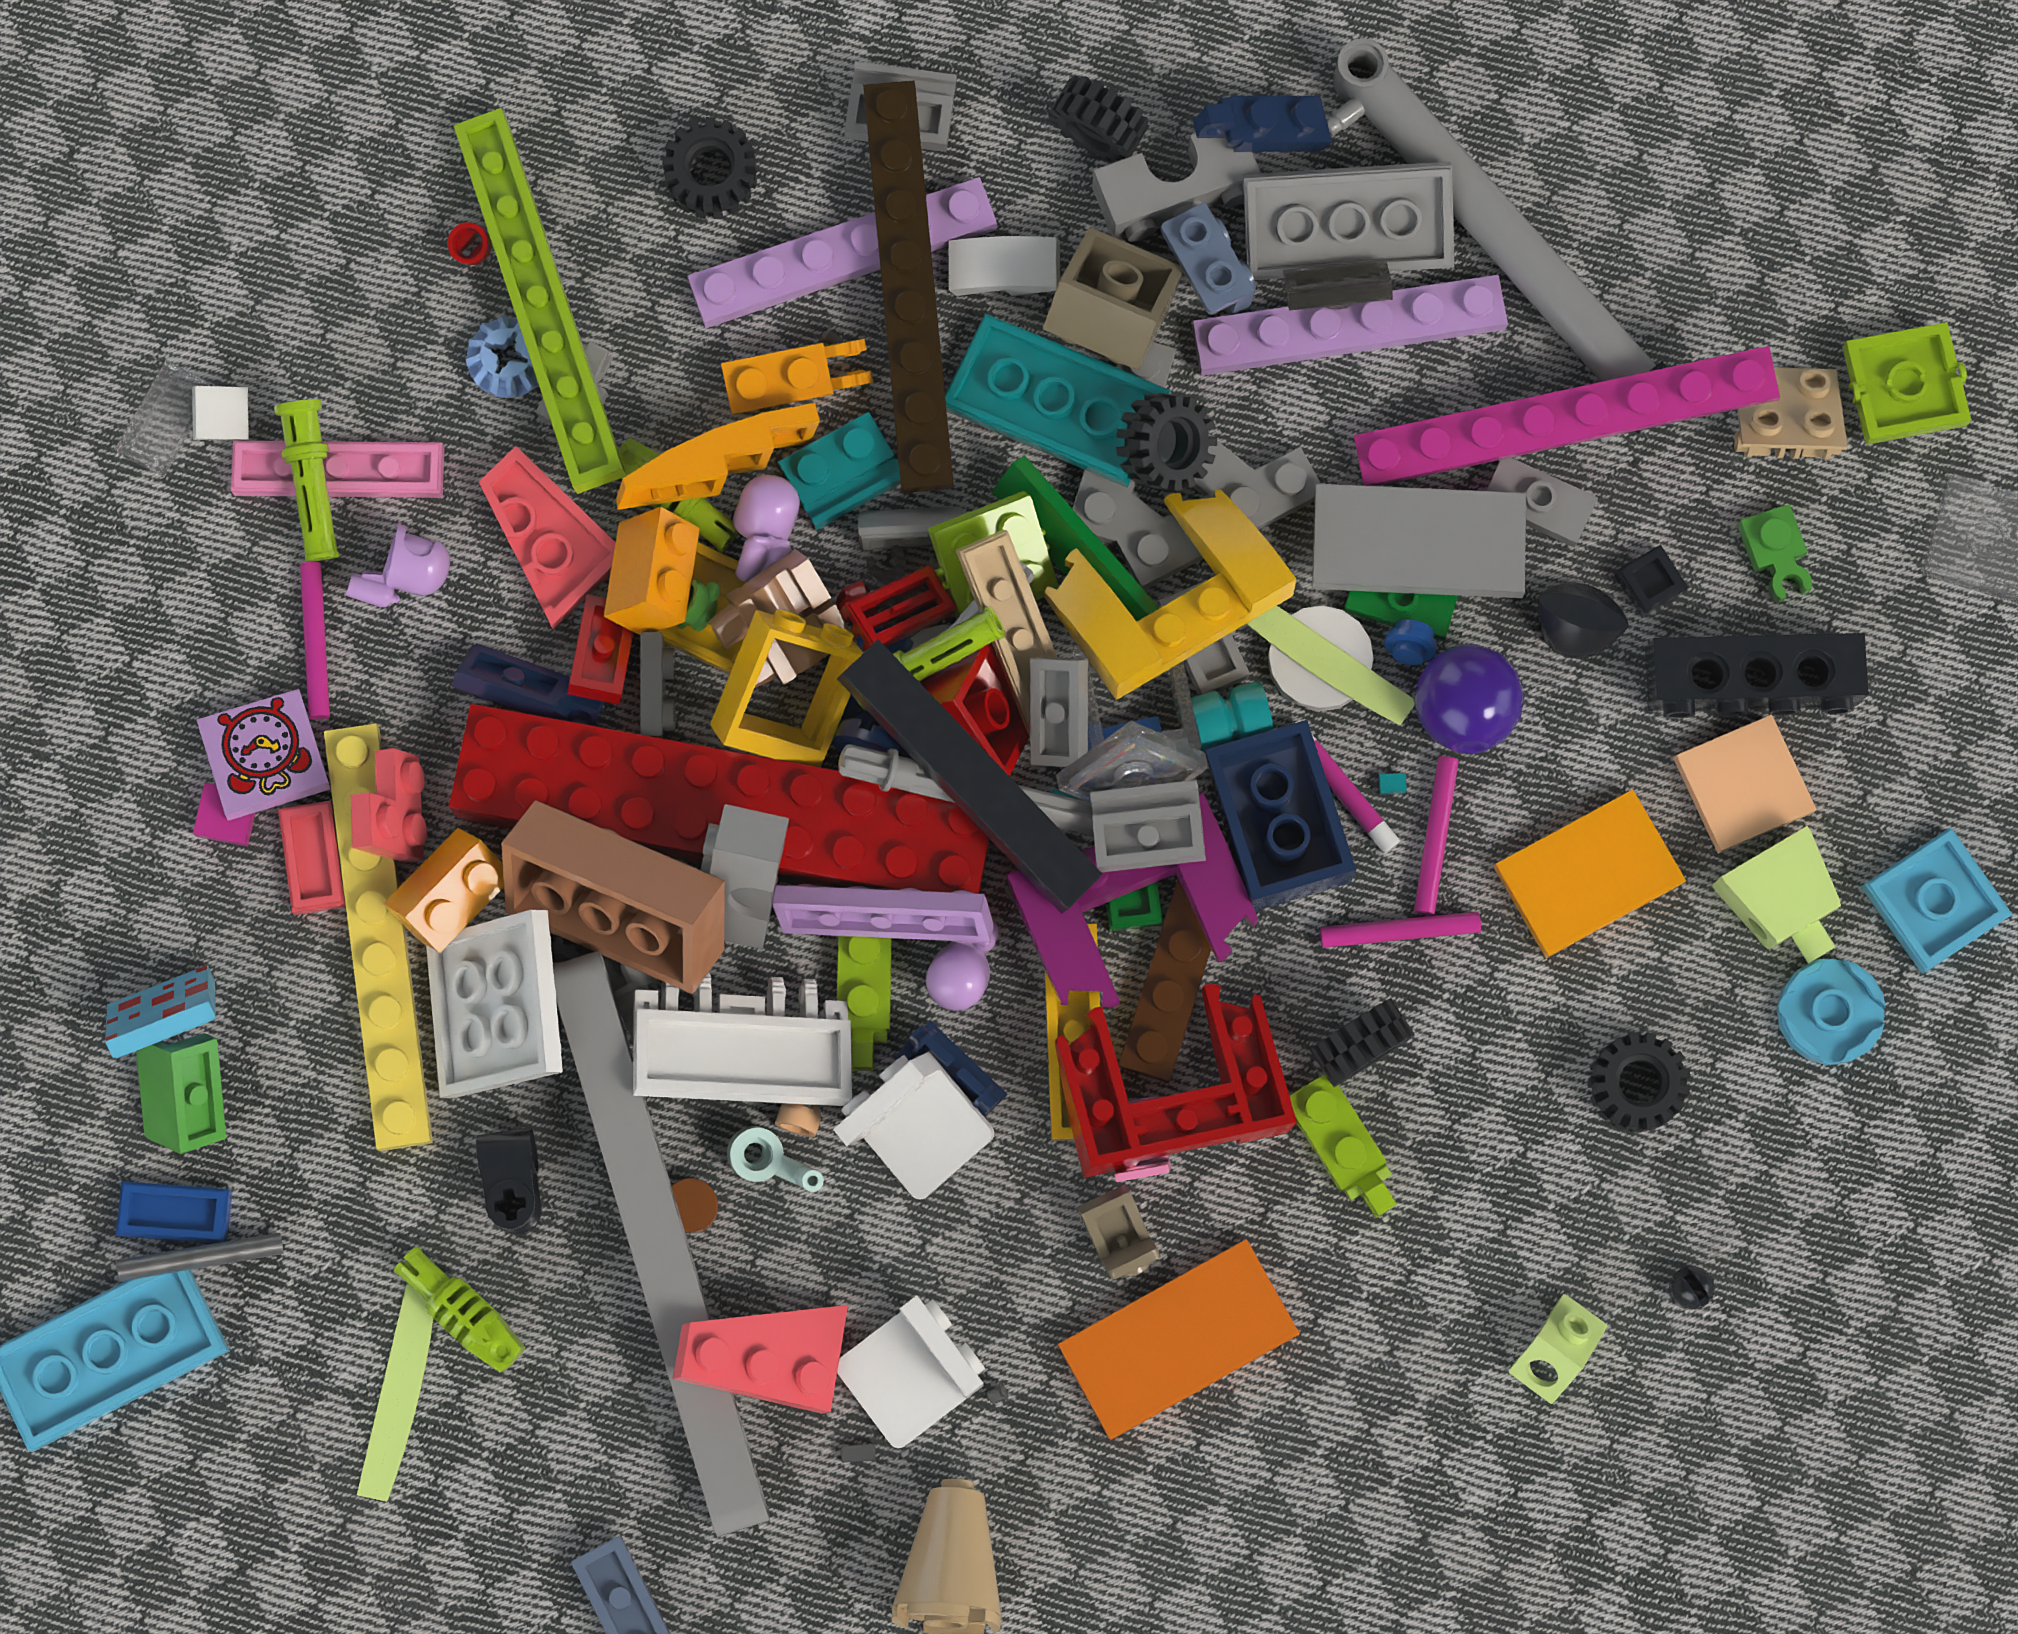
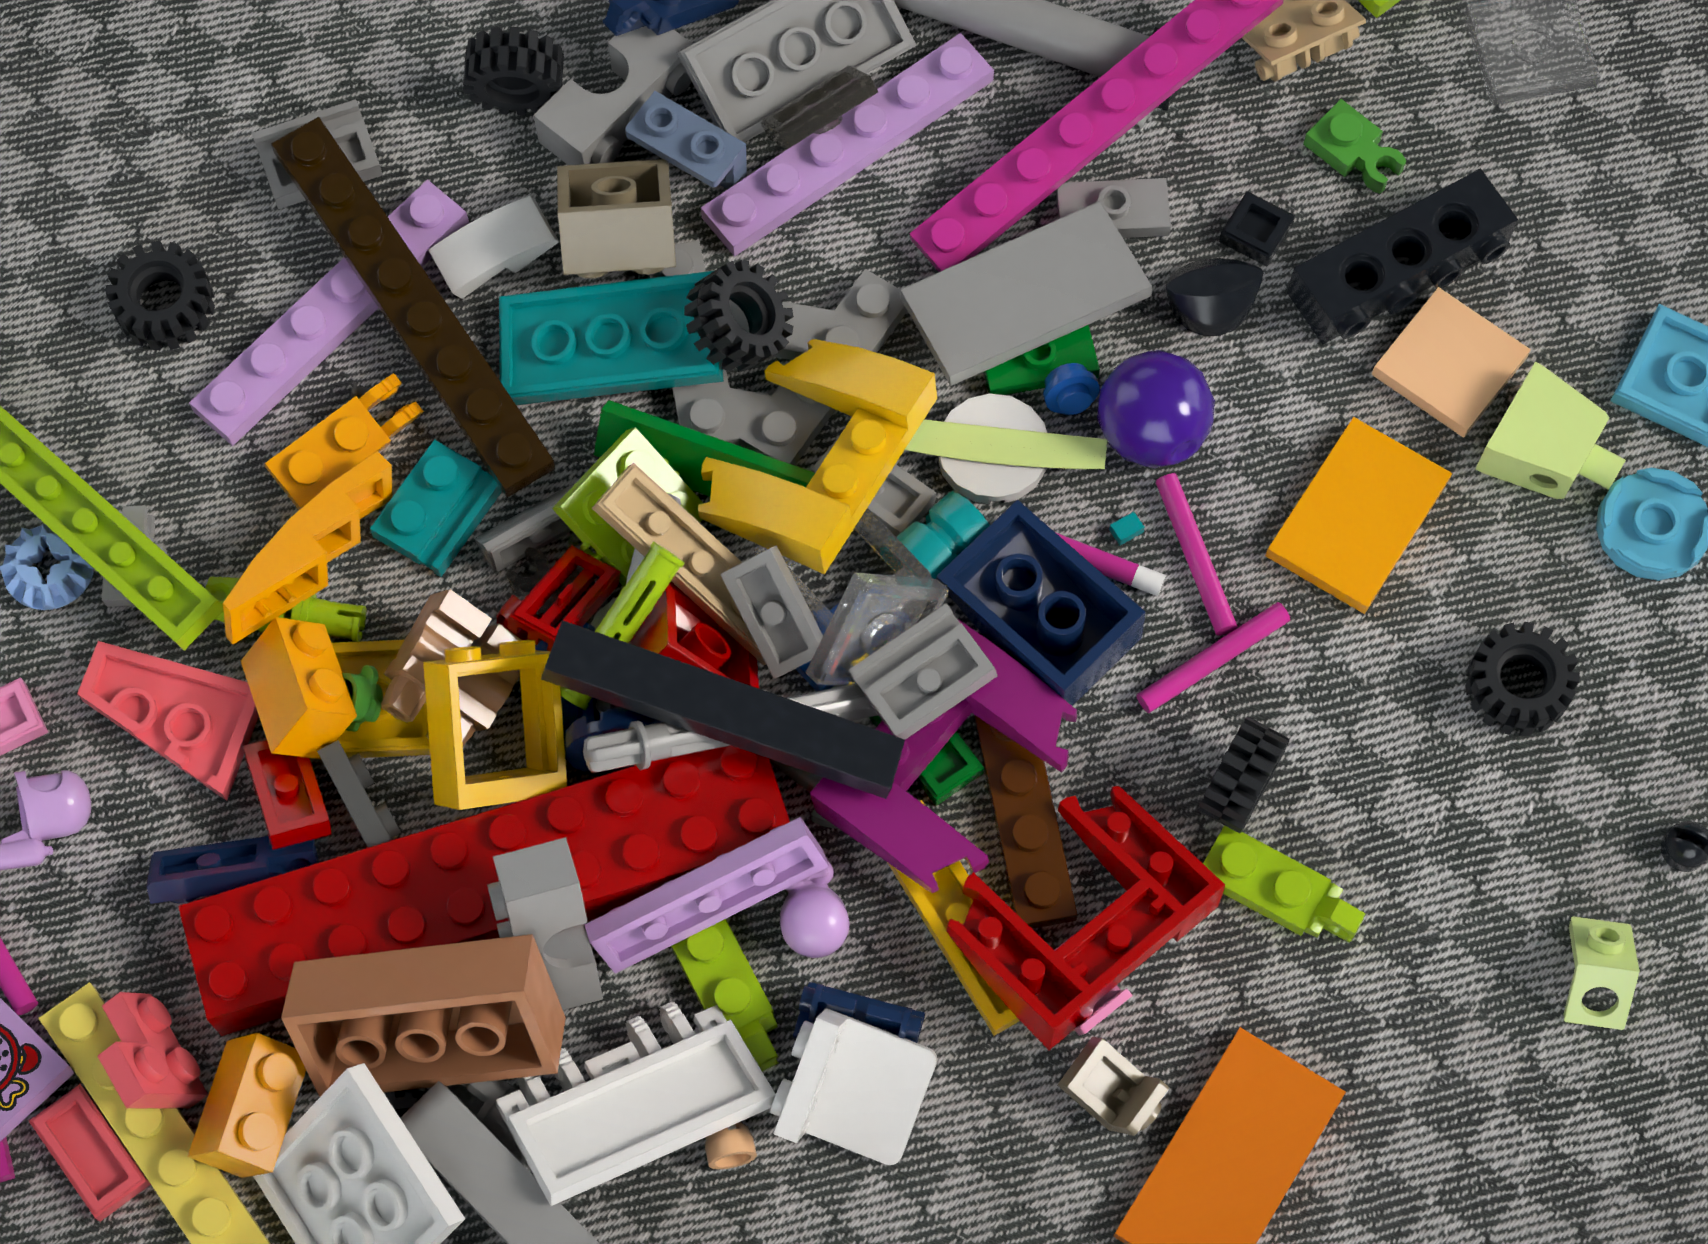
camera: 25 degrees left, 10 degrees down
(766, 519) = (387, 582): lavender piece -> none
(771, 1162) = (725, 1205): light aqua plate -> none

